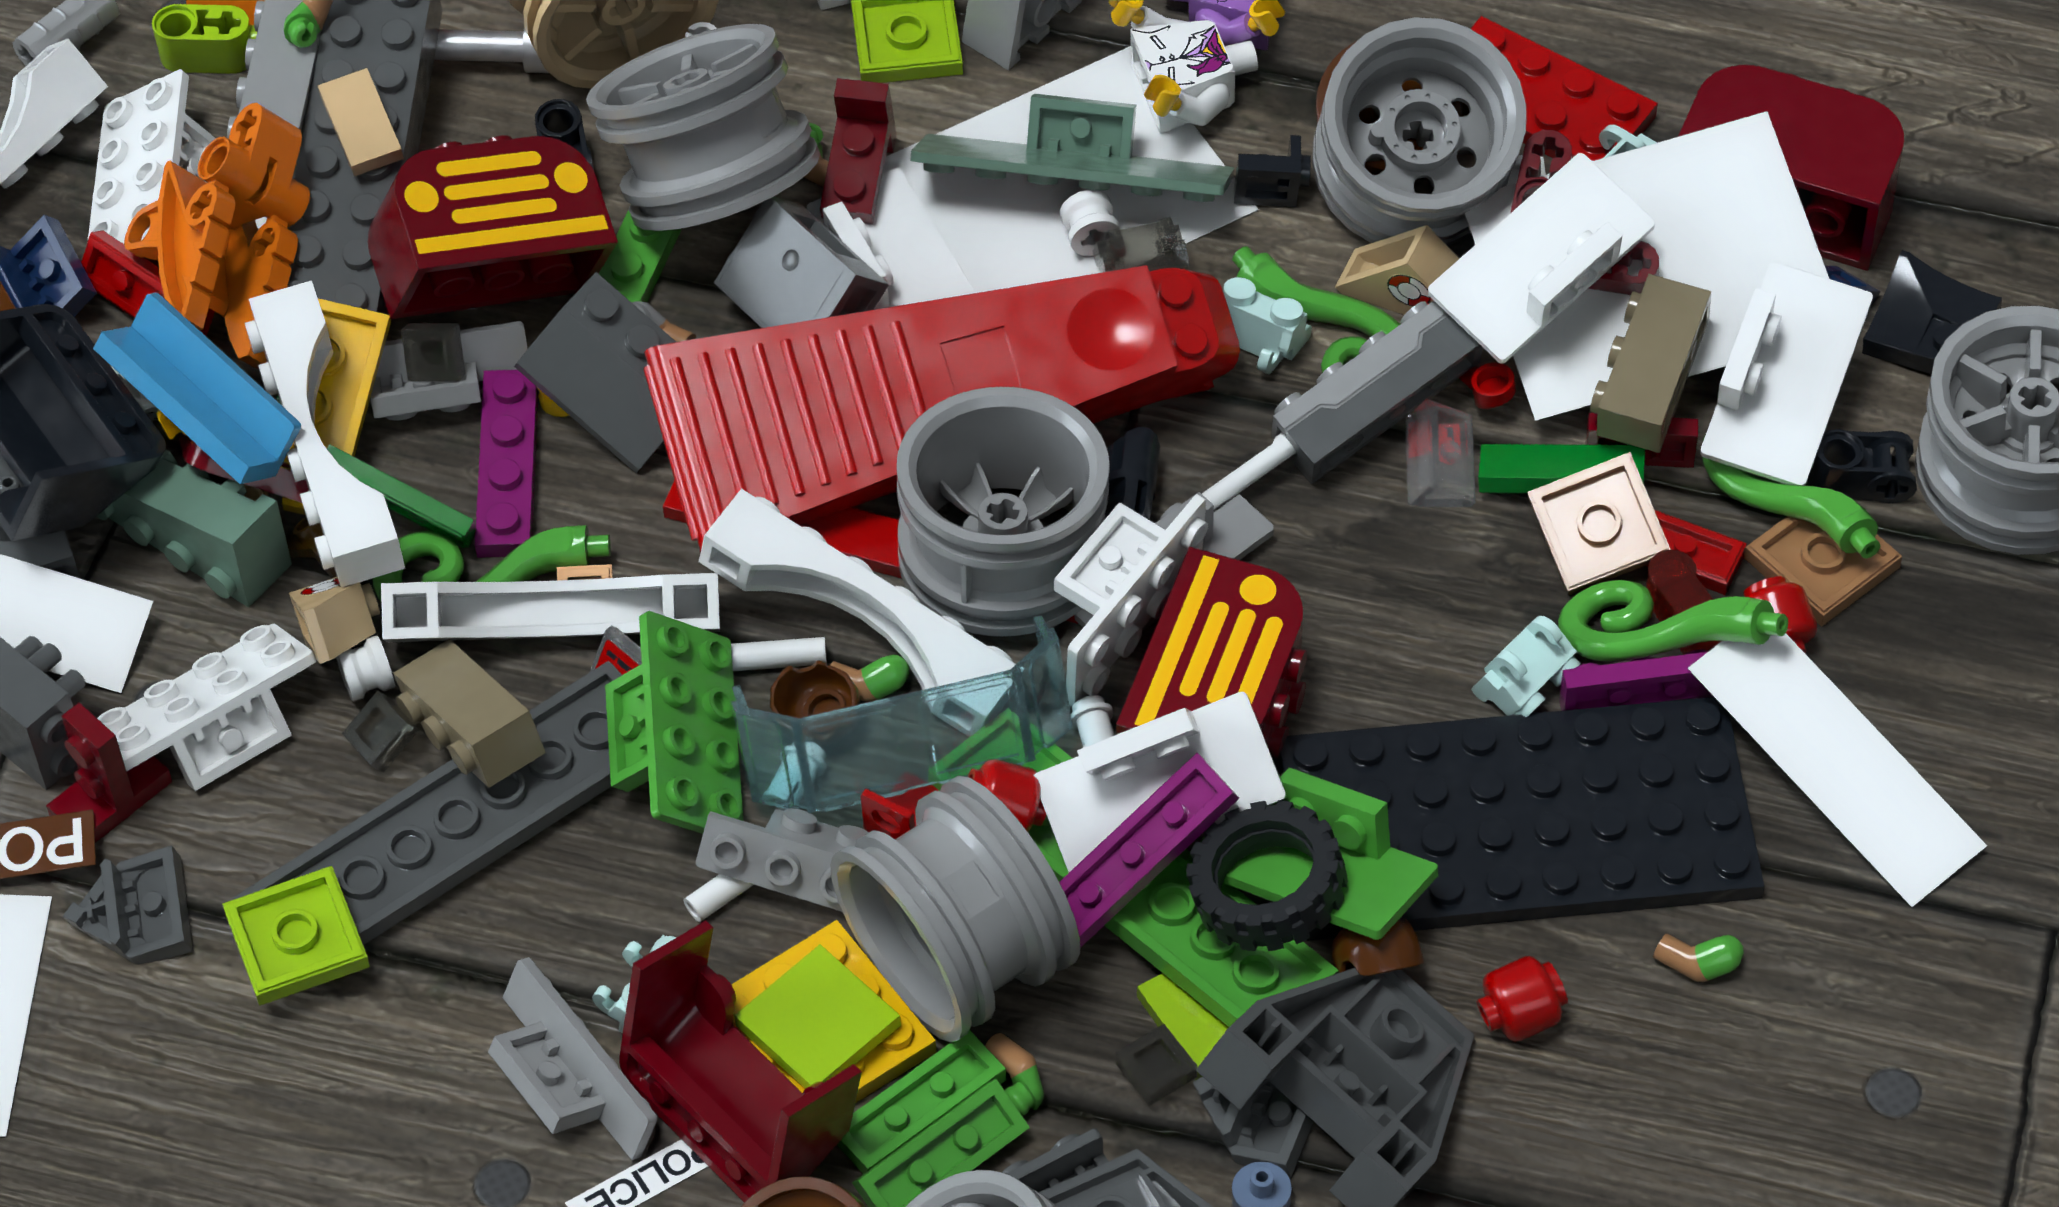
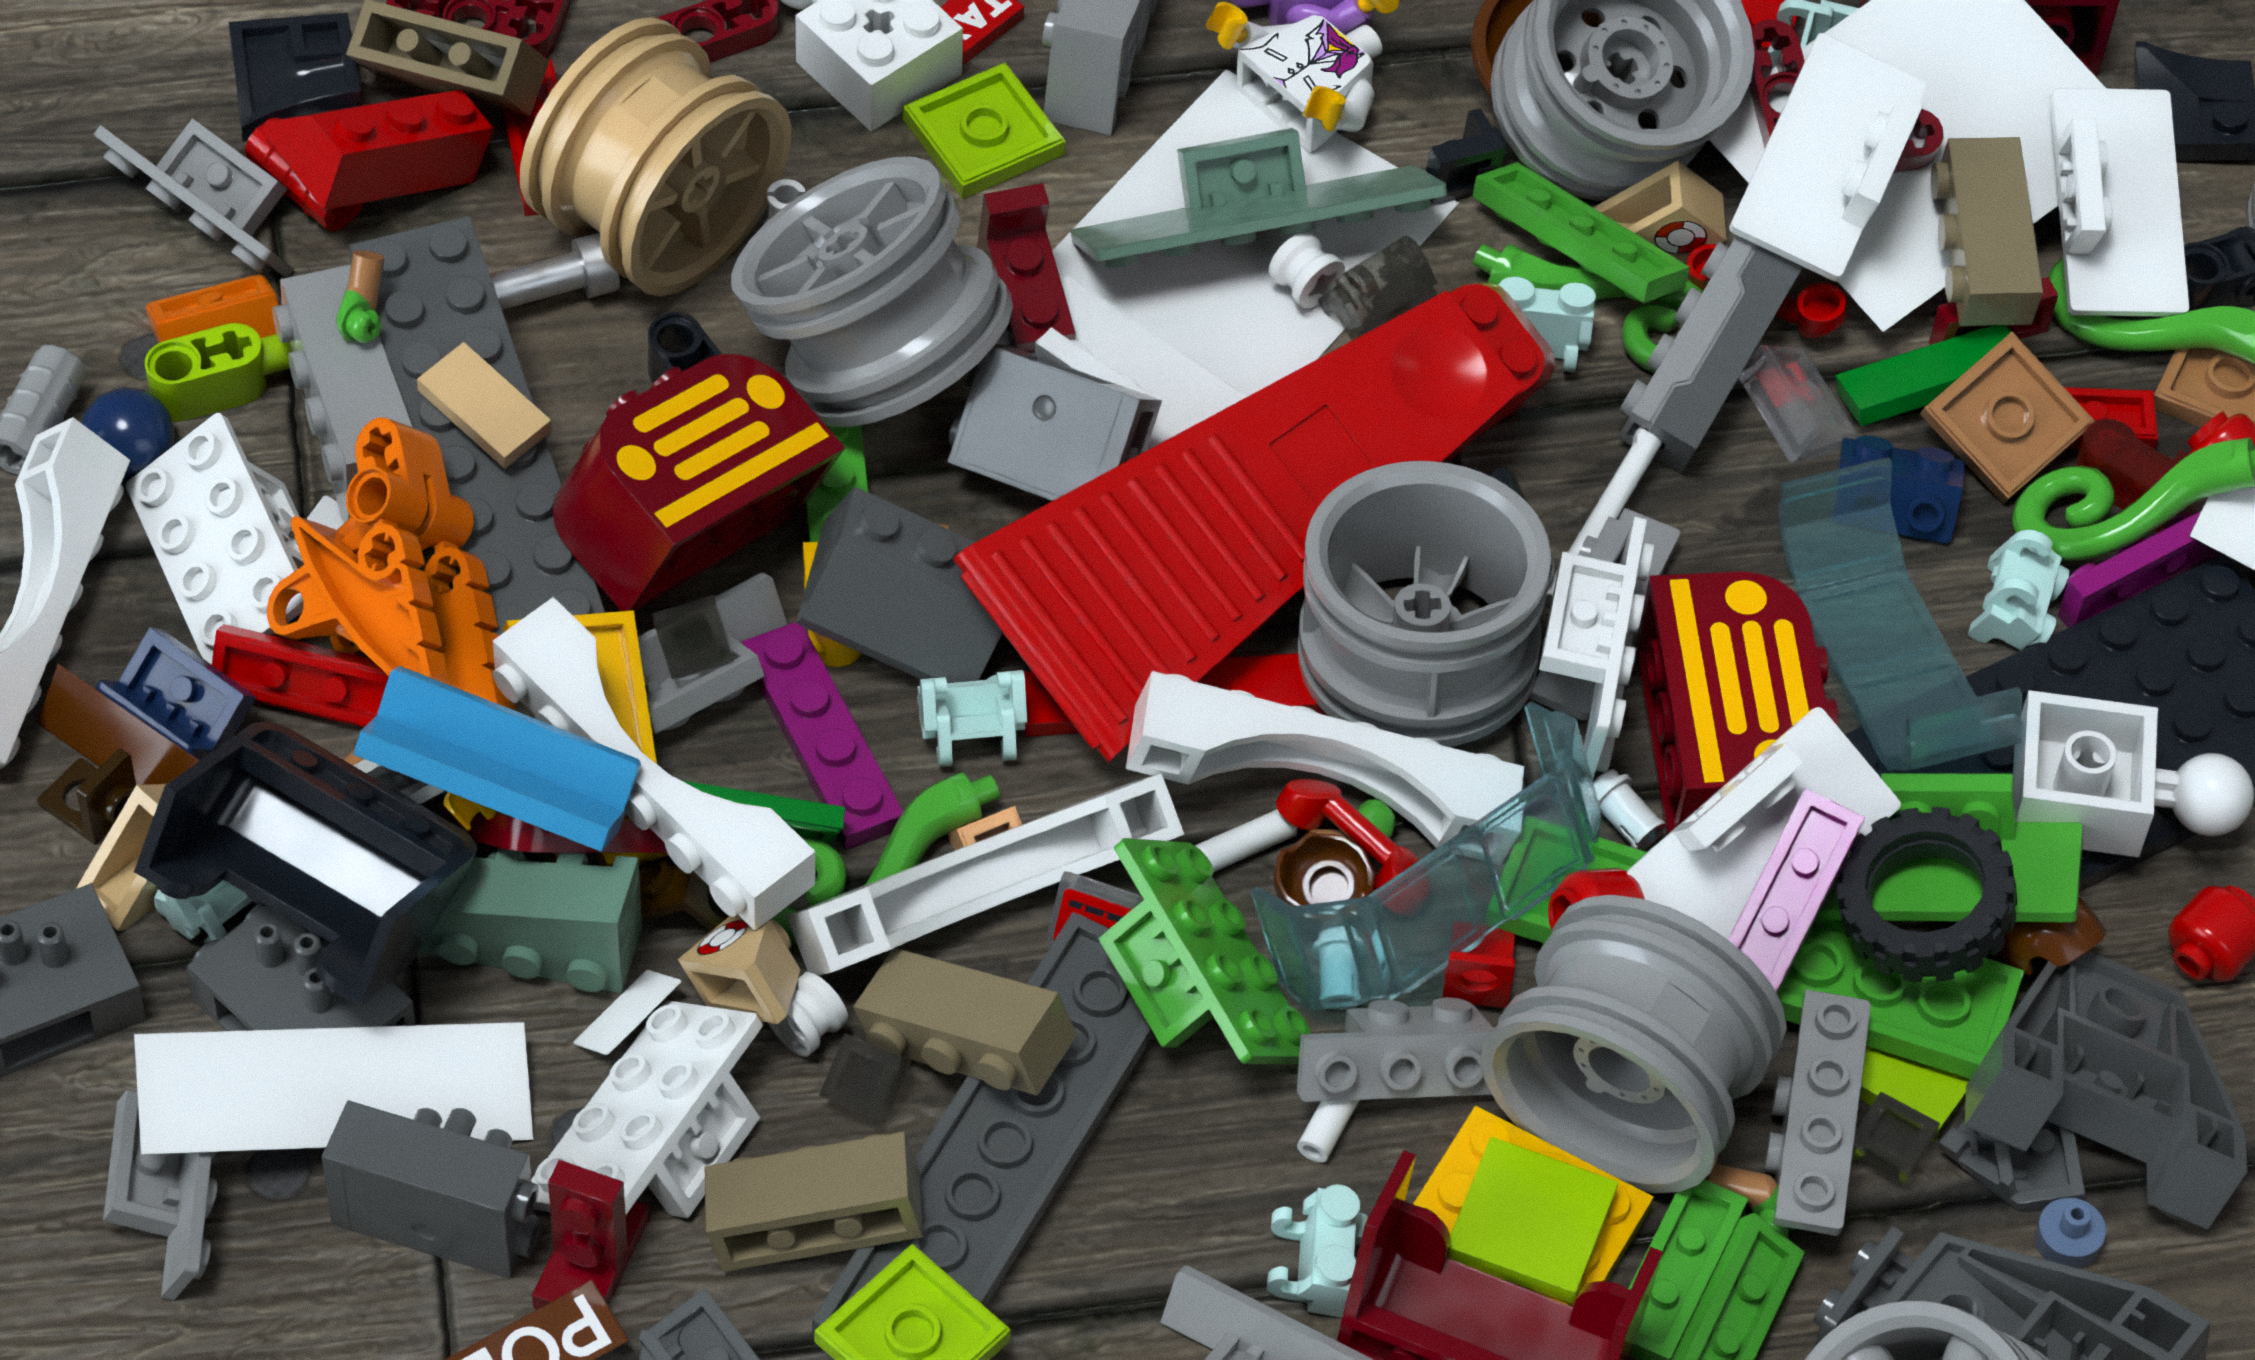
camera: 30 degrees left, 0 degrees up
(125, 62) = (133, 425): none -> dark blue hair
(239, 621) = (627, 1012): none -> white sticker
(279, 808) = (813, 1201): none -> dark tan brick
(621, 480) = (973, 711): none -> light aqua piece
(843, 641) = (1310, 801): none -> red bar
(1093, 1020) = (1818, 1114): none -> light grey bracket
(1327, 261) = (1580, 232): none -> bright green plate
(1387, 648) = (1877, 627): none -> clear light blue windscreen
(1477, 551) = (1923, 485): none -> dark blue bracket
(1484, 829) = (2099, 769): none -> white brick

